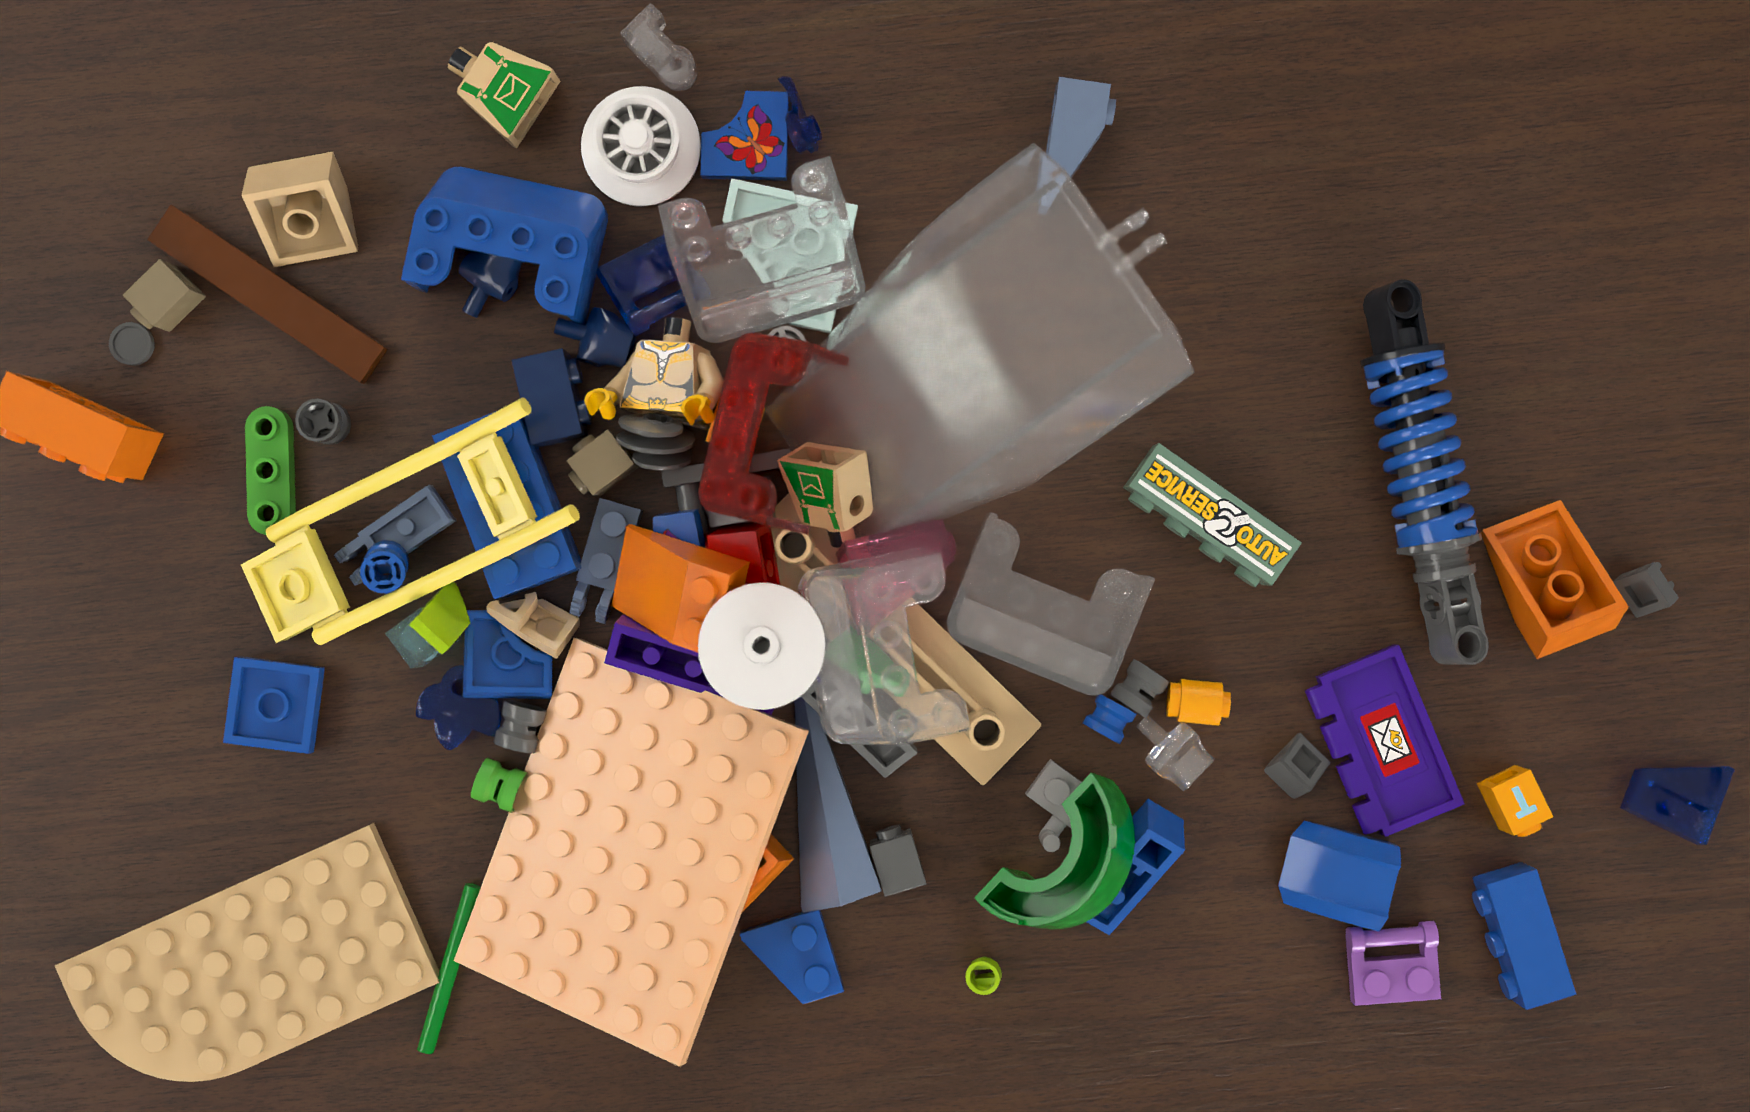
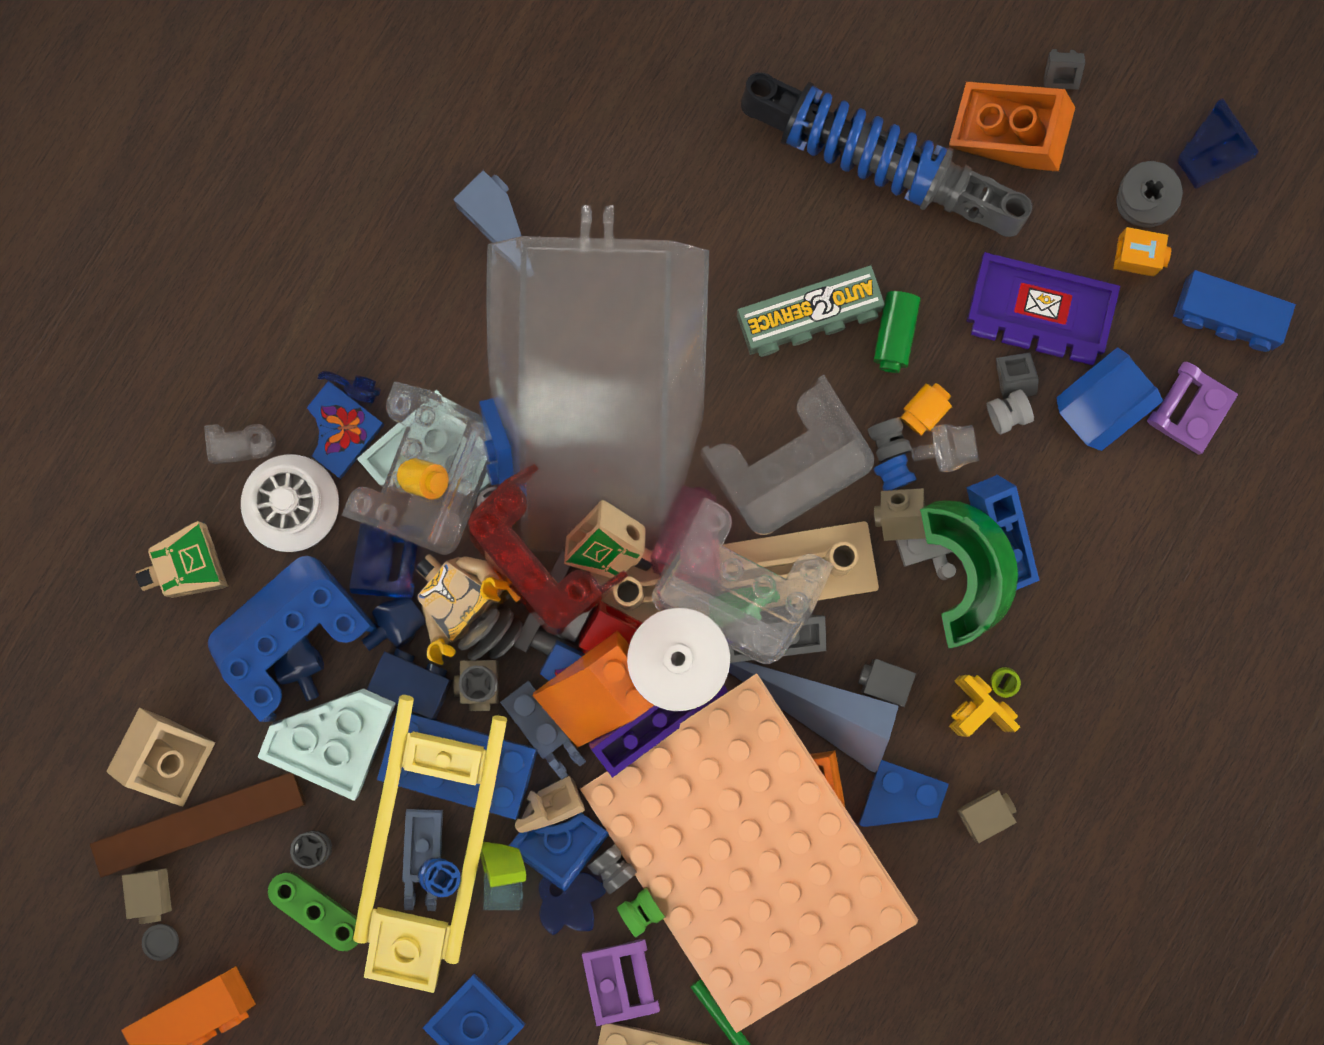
camera: 50 degrees left, 5 degrees down
(407, 806) = (608, 984): none -> medium lavender plate
(438, 362) = (331, 741): none -> light aqua plate
(588, 463) = (473, 683): none -> dark grey wheel
(756, 258) = (423, 478): none -> yellow brick
(840, 307) = (496, 444): none -> blue wing
(841, 1052) = (987, 815): none -> dark tan brick
(932, 972) = (973, 714): none -> yellow bracket
(1073, 754) = (901, 514): none -> dark tan brick
(1254, 616) = (896, 331): none -> green brick
(1256, 787) = (1010, 411): none -> light grey wheel
(1559, 759) = (1139, 209): none -> dark grey piece

